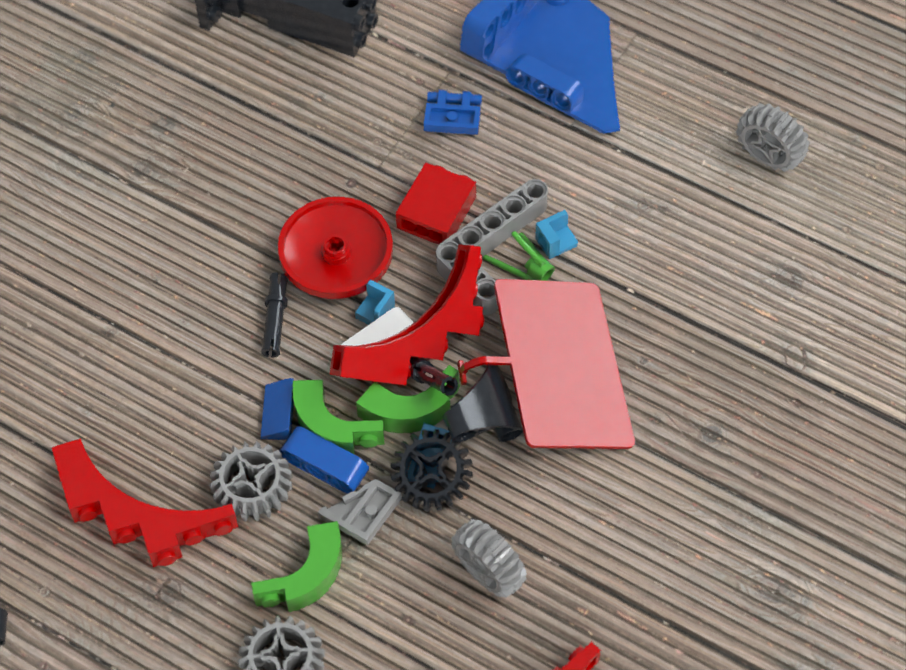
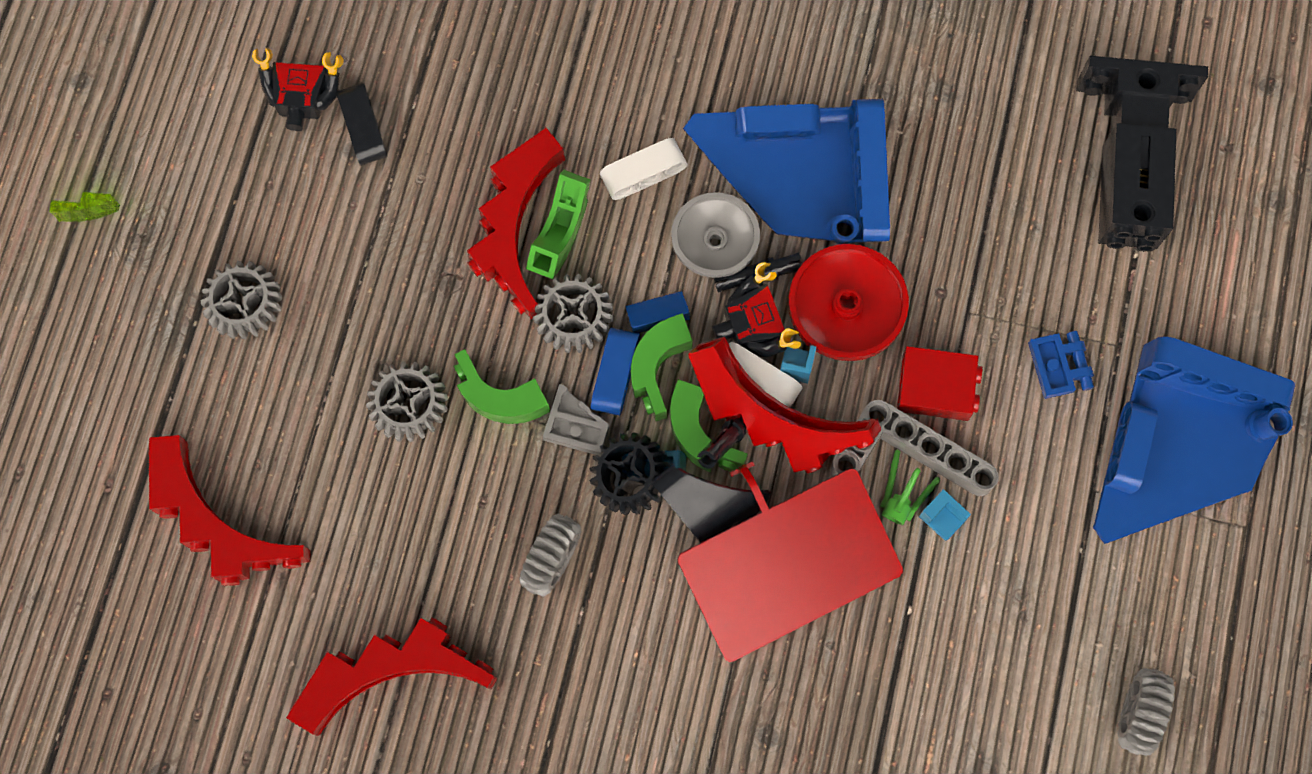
camera: 75 degrees right, 15 degrees up
(130, 381) = (643, 169): none -> white beam
(158, 468) = (562, 226): none -> bright green arch
(189, 244) = (804, 166): none -> blue panel
(224, 320) = (721, 218): none -> light grey dish
(320, 326) = (755, 318): none -> torso

